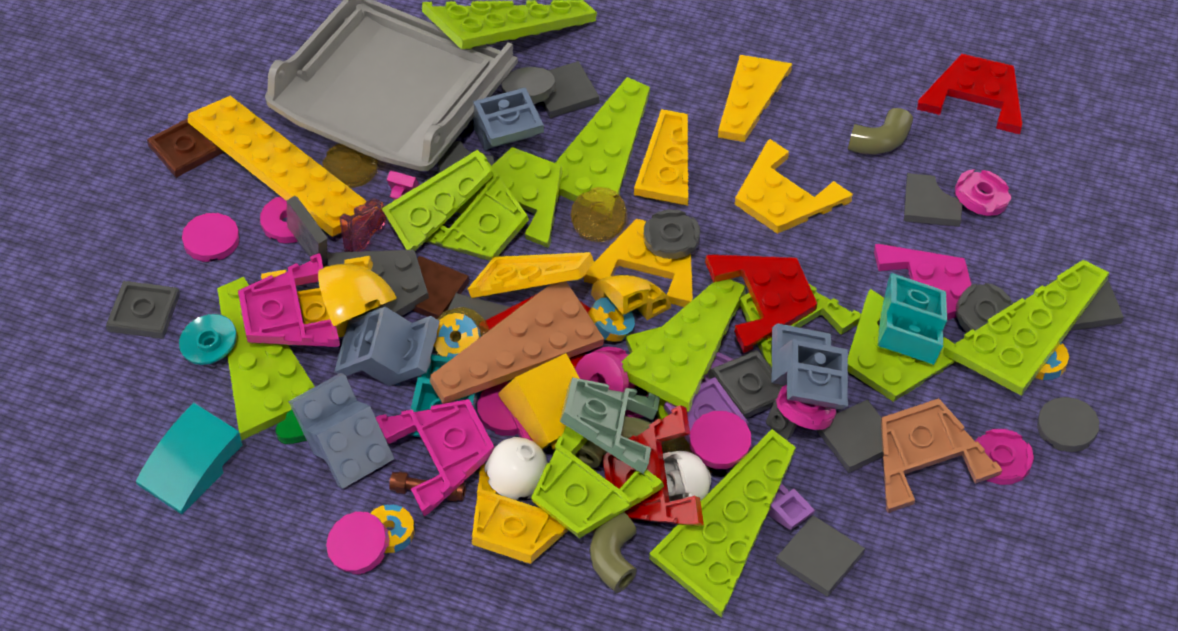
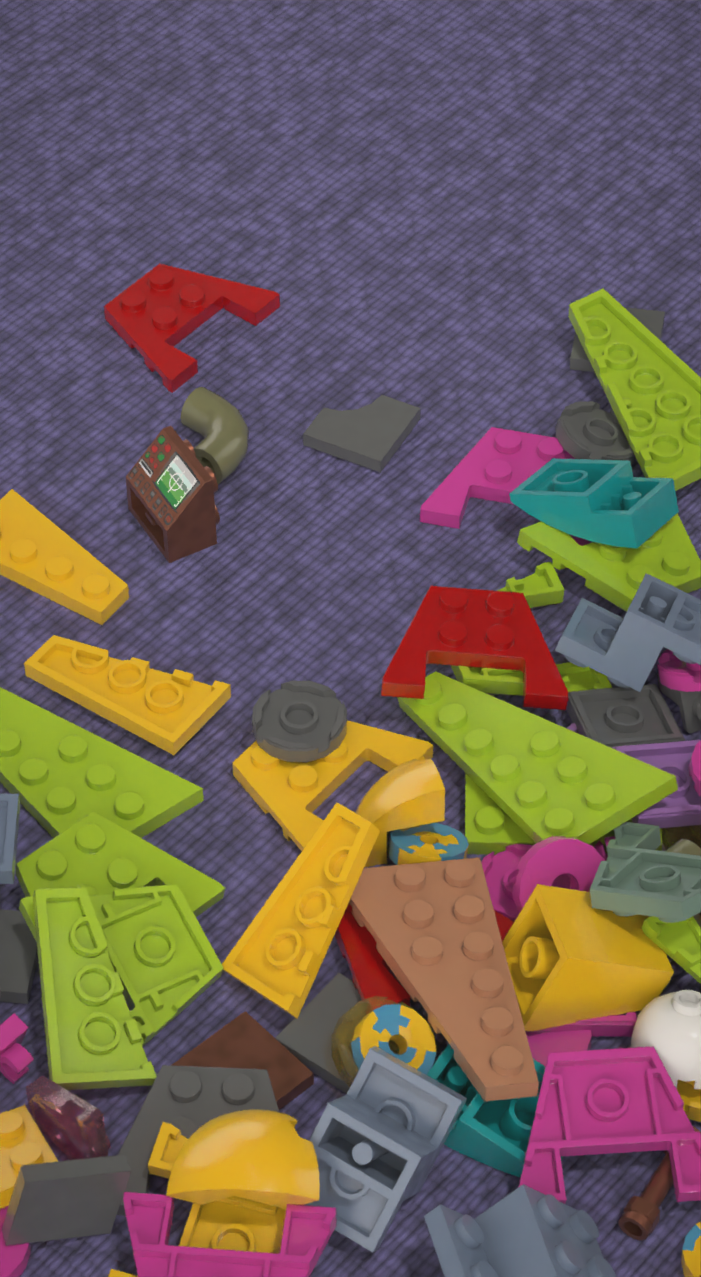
camera: 70 degrees left, 5 degrees down
(599, 214) = (201, 804): clear yellow tile -> none
(778, 200) = (265, 594): yellow wing -> none
(813, 130) = (174, 497): none -> copper slope
(969, 194) = (379, 371): dark pink tile -> none

